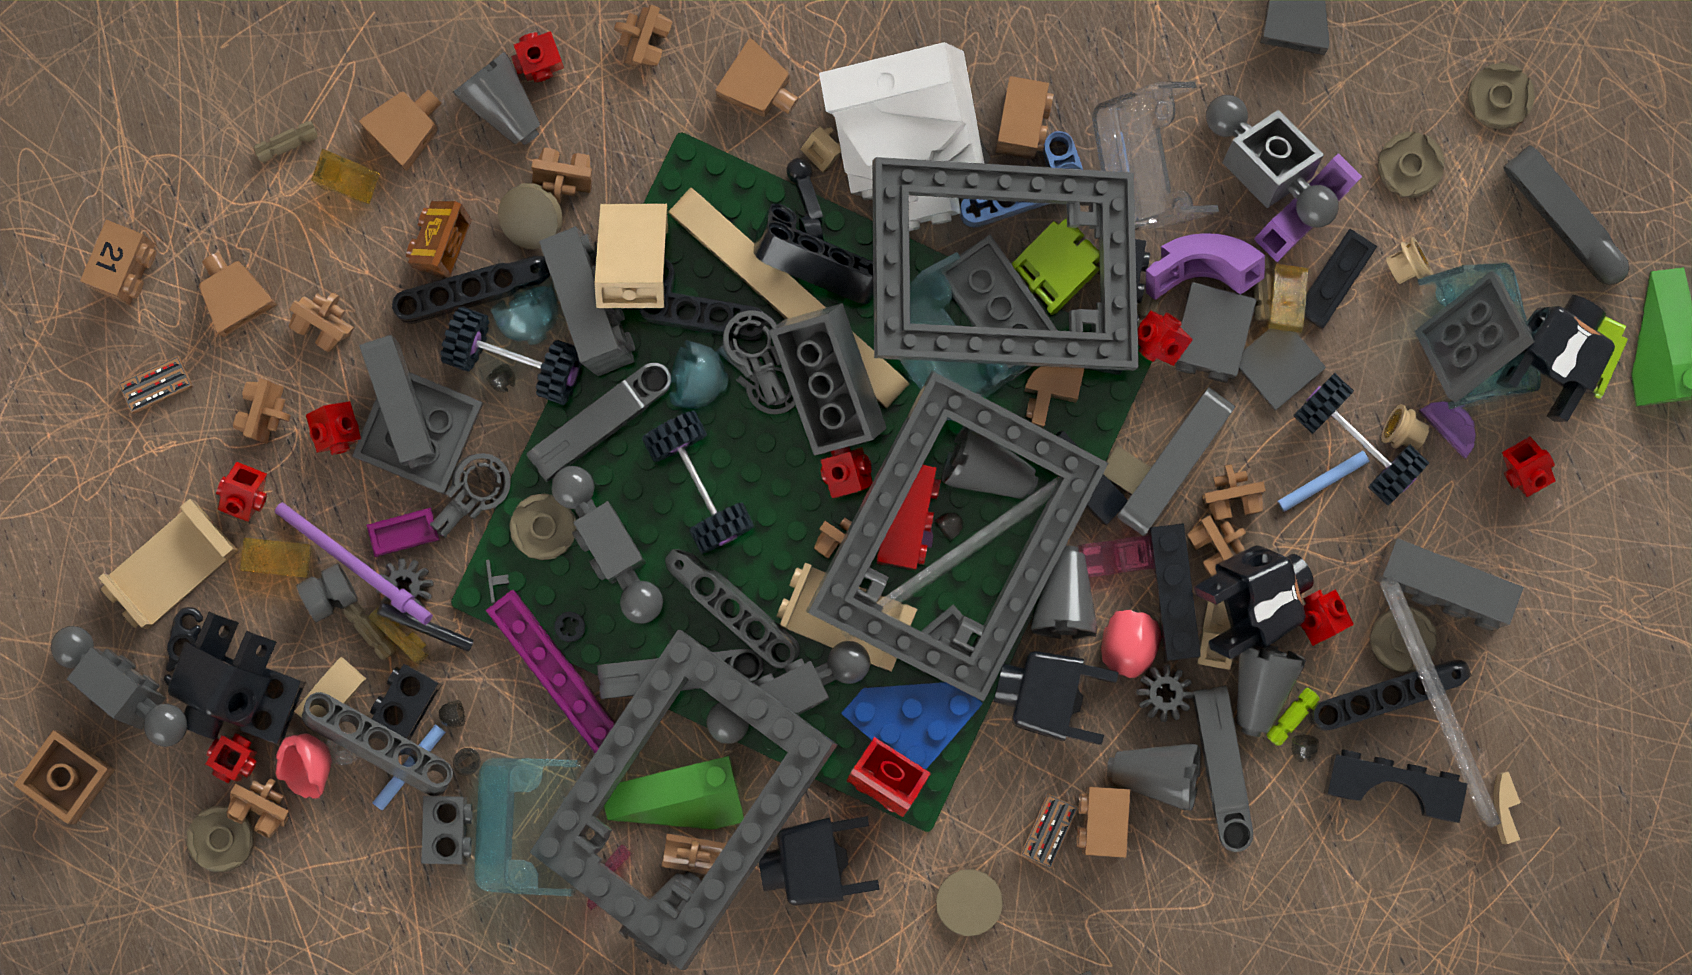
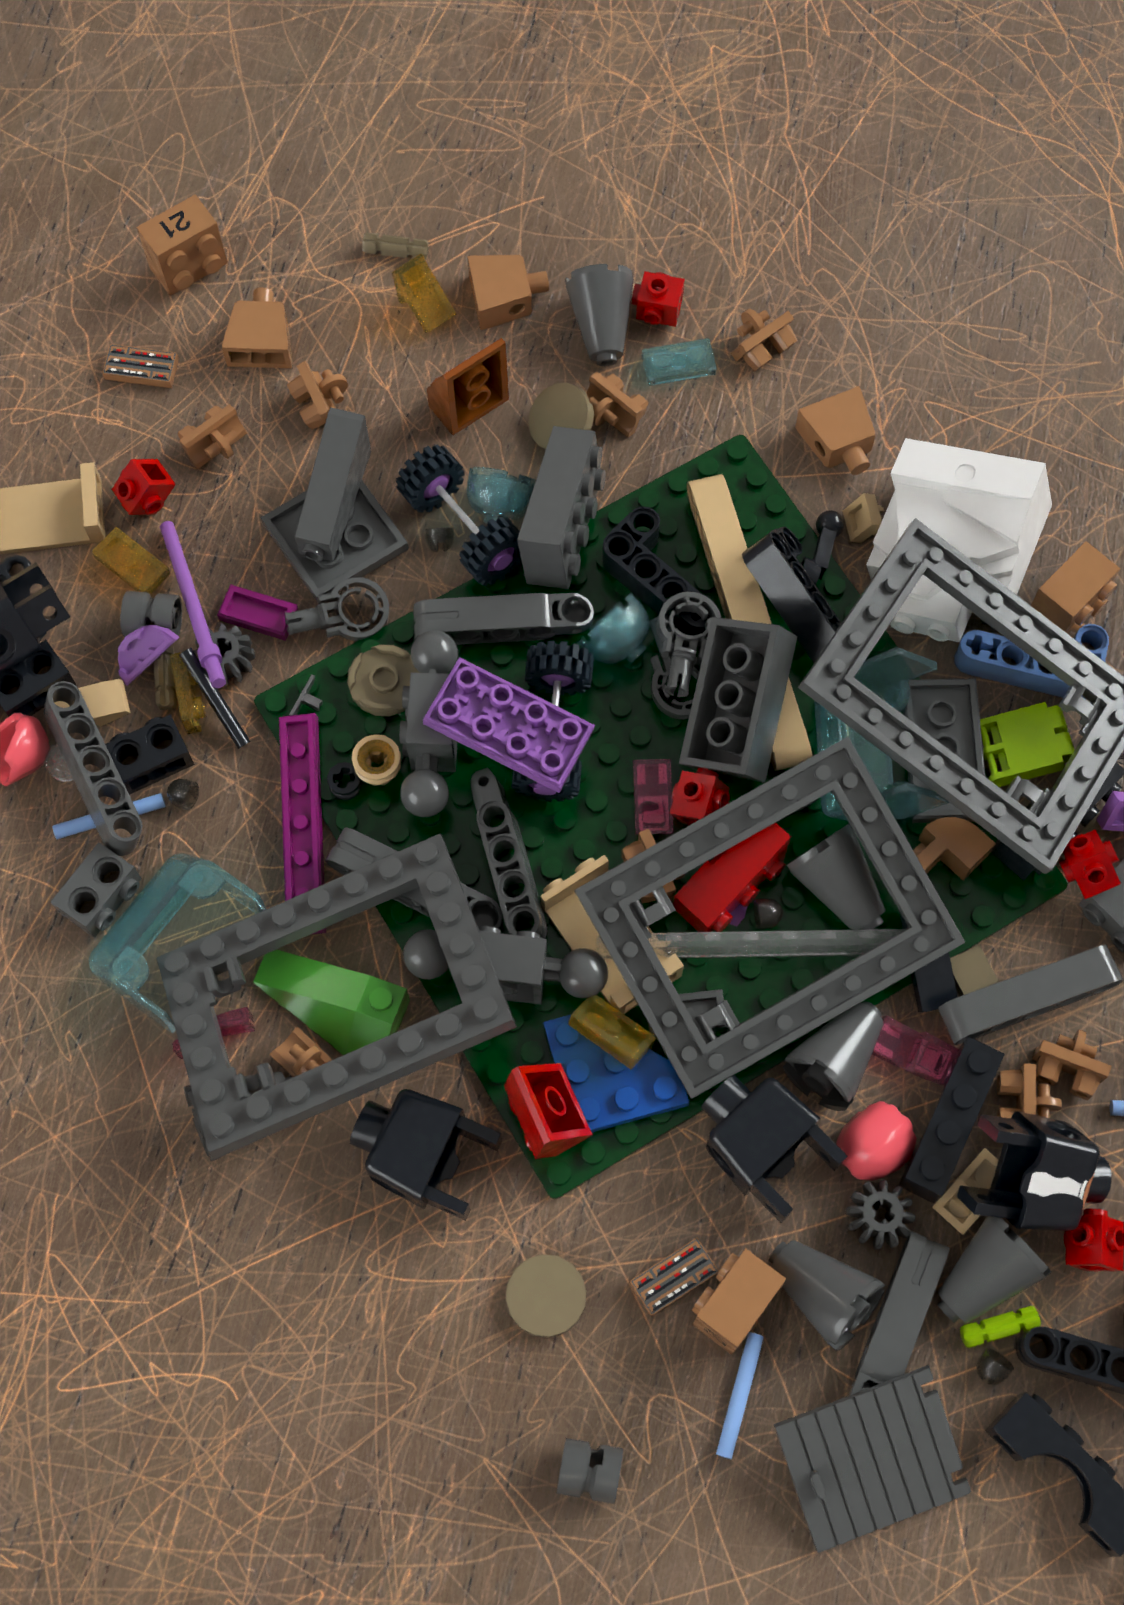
camera: 30 degrees right, 15 degrees down
(333, 428) = (262, 483): red brick -> none
(342, 624) = (141, 649): none -> medium lavender tile
(461, 756) = (162, 835): clear smoke hinge -> none
(522, 278) = (457, 435): black piece -> none
(578, 588) = (376, 749): none -> tan piece
(587, 99) = (678, 362): none -> clear light blue plate
(631, 256) = (623, 483): tan panel -> none
(674, 515) = (508, 724): none -> medium lavender tile
(808, 488) = (653, 796): none -> clear pink slope
(896, 690) = (612, 1031): none -> clear yellow plate
(1145, 882) = (739, 1395): none -> light blue bar
(1259, 866) = (873, 1459): none -> dark grey door

